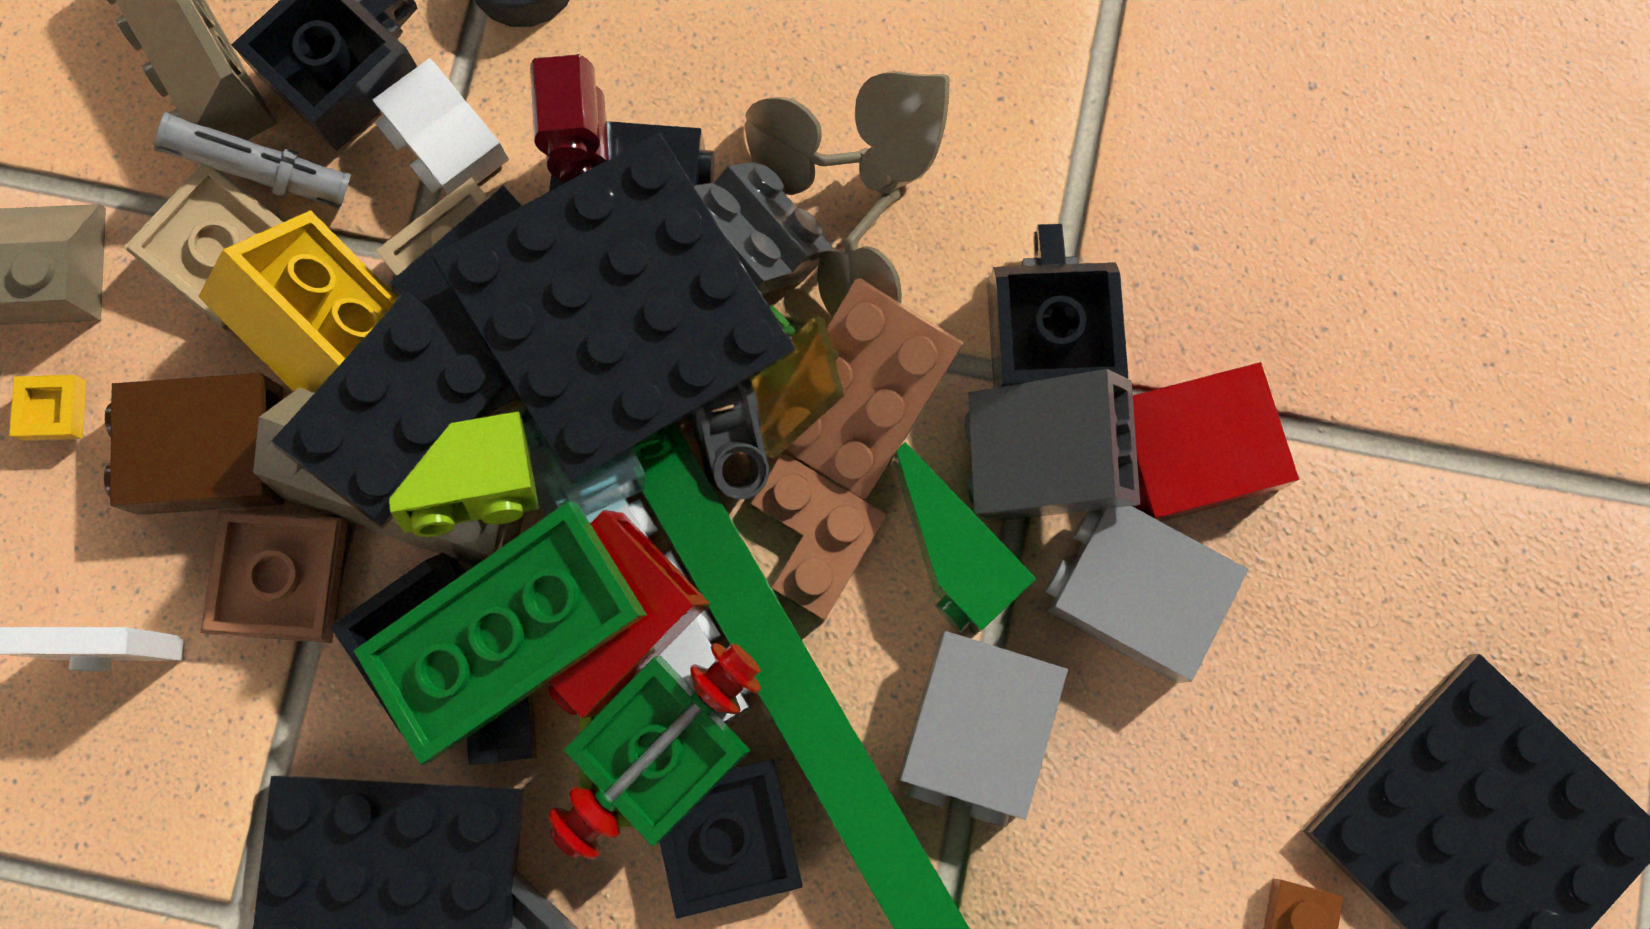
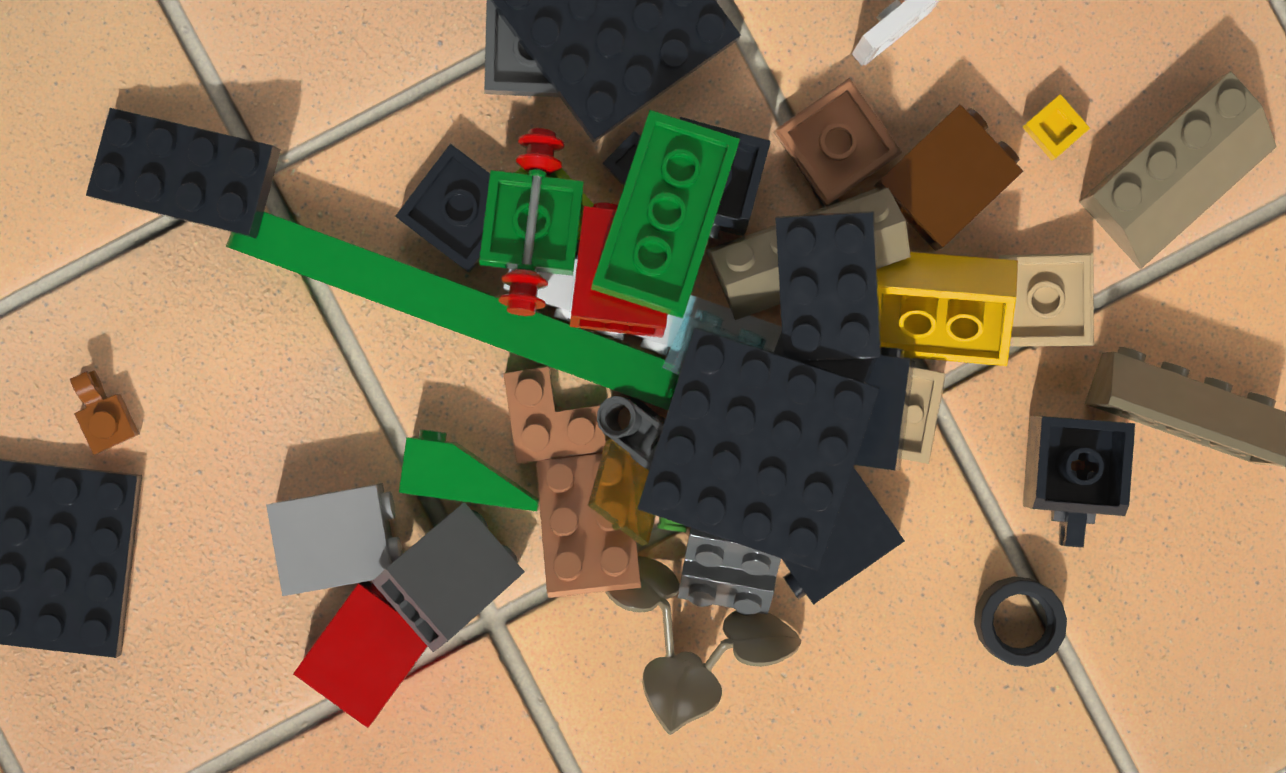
camera: 135 degrees right, 10 degrees up
(248, 160) = (1076, 360): light grey pin -> none
(439, 129) = (974, 477): white brick -> none
(469, 475) = (751, 286): lime slope -> none
(568, 115) = (882, 538): dark red brick -> none
(982, 728) = (365, 383): light grey brick -> none
(1055, 289) = (504, 682): black hinge -> none

